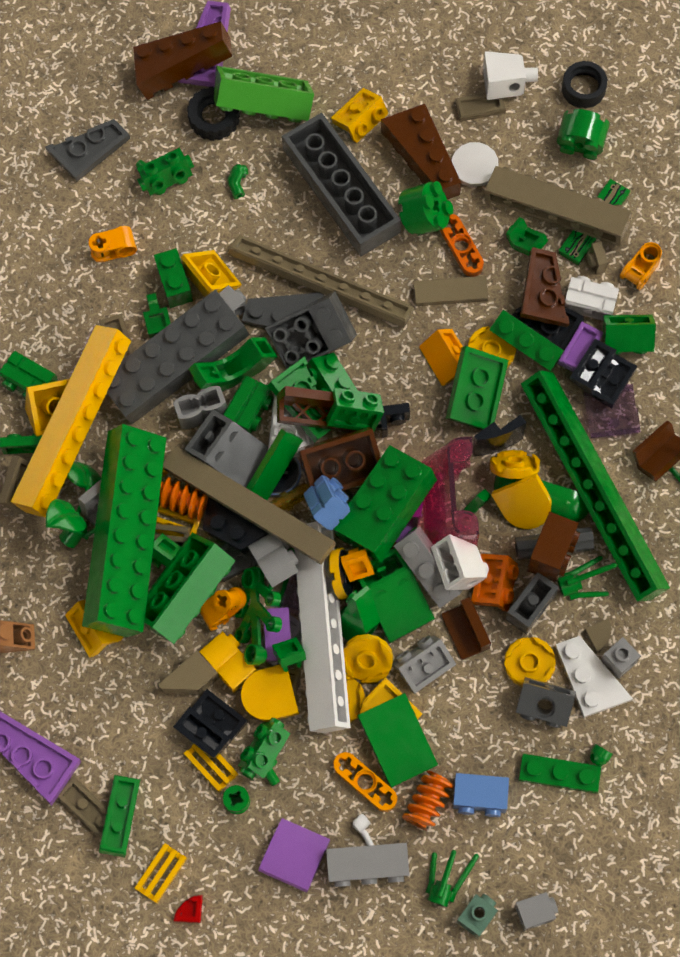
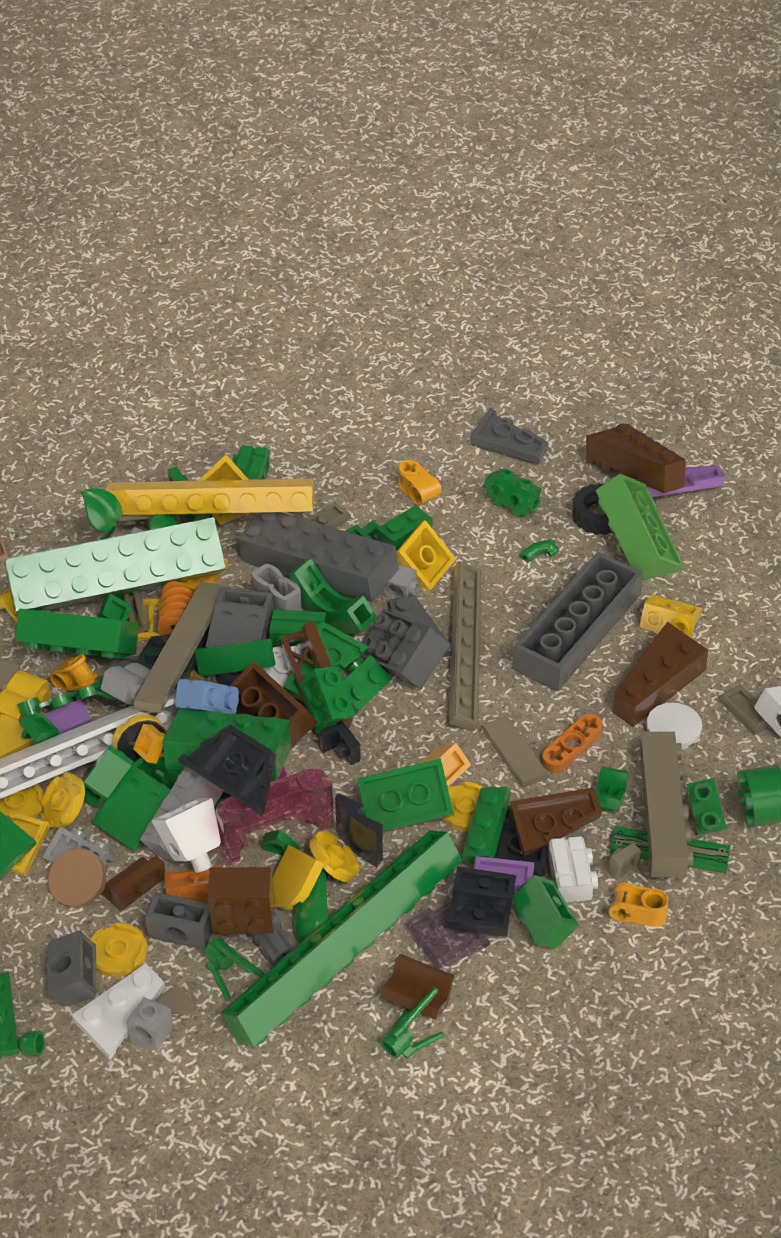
camera: 65 degrees right, 25 degrees down
(425, 208) = (601, 688): green brick -> none
(434, 503) = (235, 766): none -> black wing
(452, 671) = (77, 878): none -> medium nougat tile
(574, 177) = (706, 806): none -> green hips

